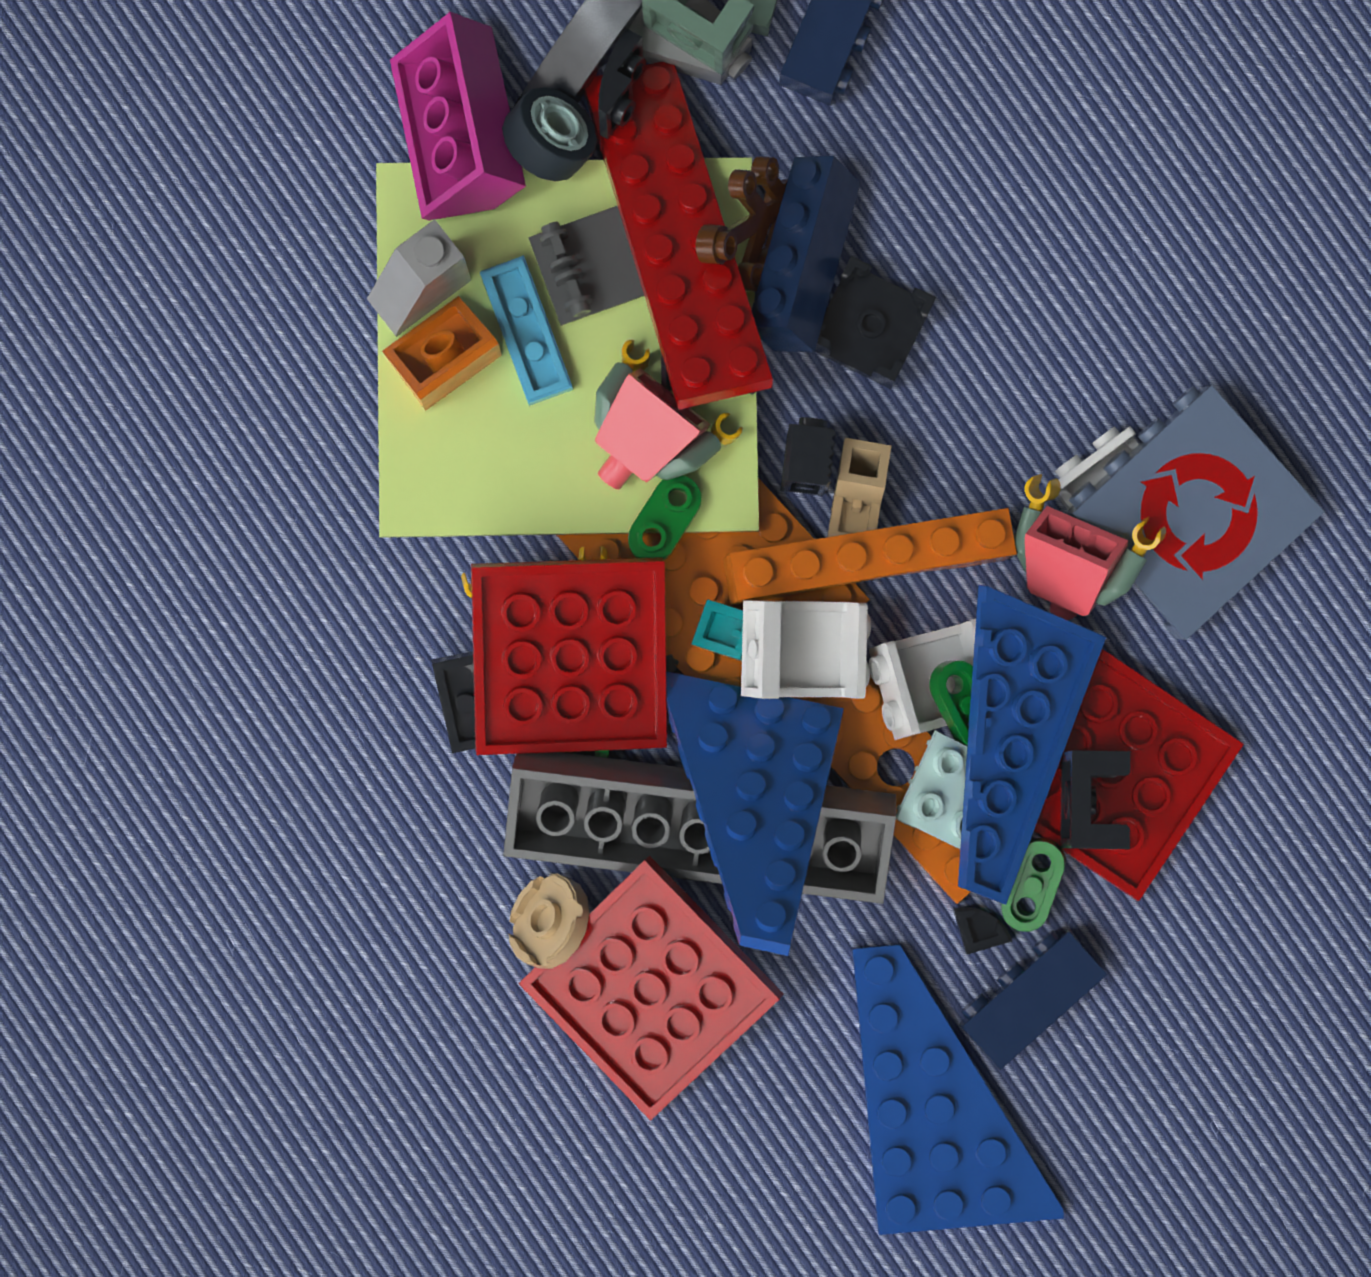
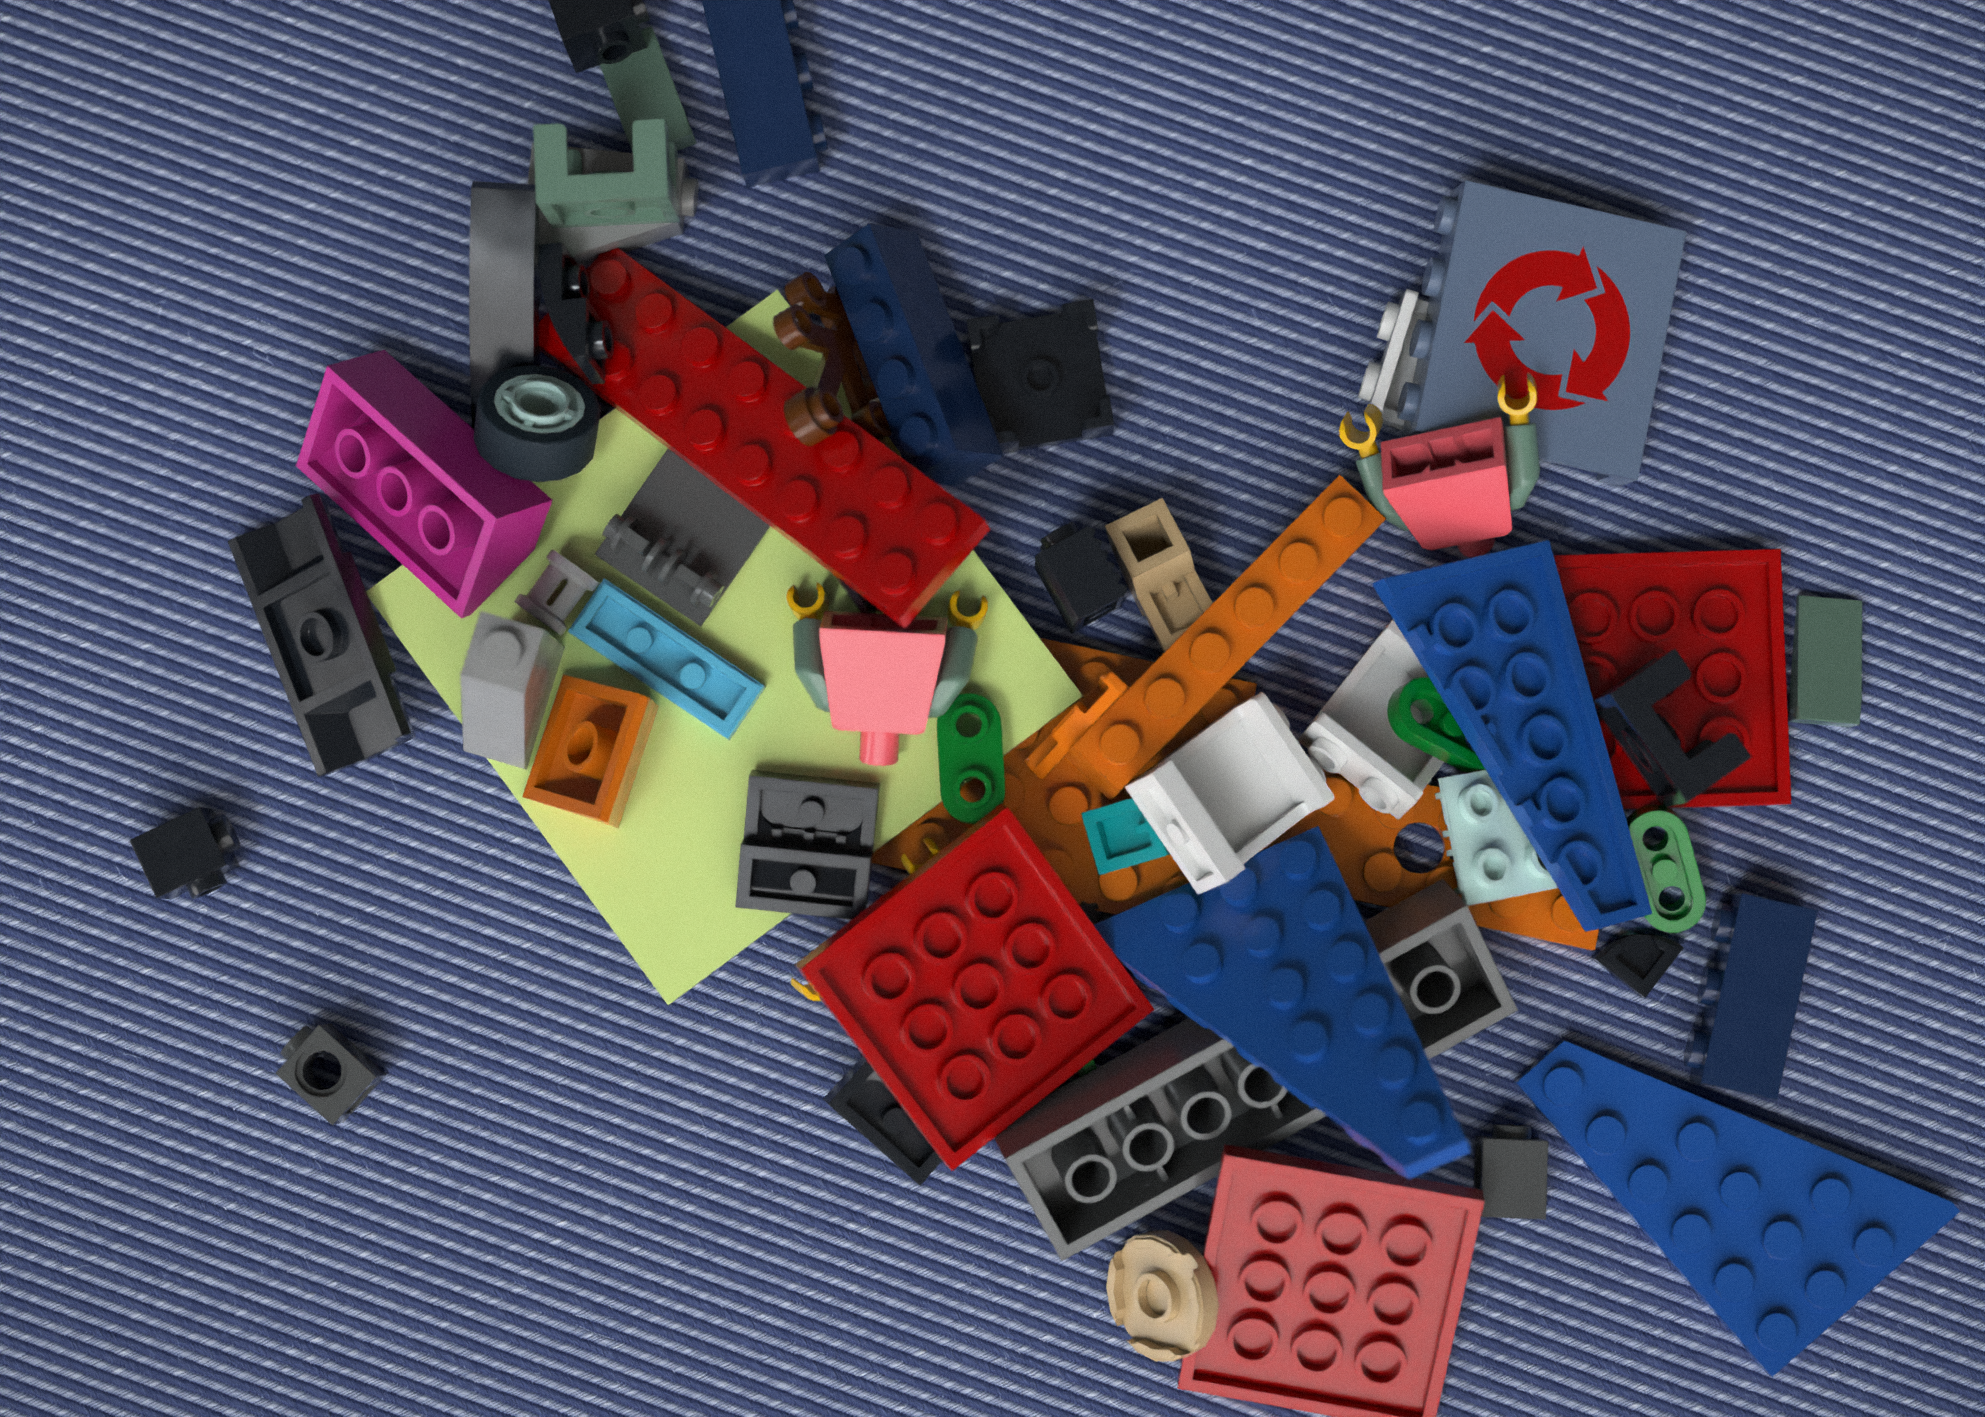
camera: 35 degrees left, 0 degrees up
(159, 452) = (357, 1077): none -> dark grey brick
(160, 244) = (188, 854): none -> black brick
(332, 173) = (323, 638): none -> black piece
(482, 255) = (576, 586): none -> light grey bush
(530, 500) = (807, 845): none -> black slope
(740, 542) = (1075, 725): none -> orange tile
(809, 1000) = (1512, 1172): none -> dark grey brick
(1223, 833) = (1826, 662): none -> sand green slope

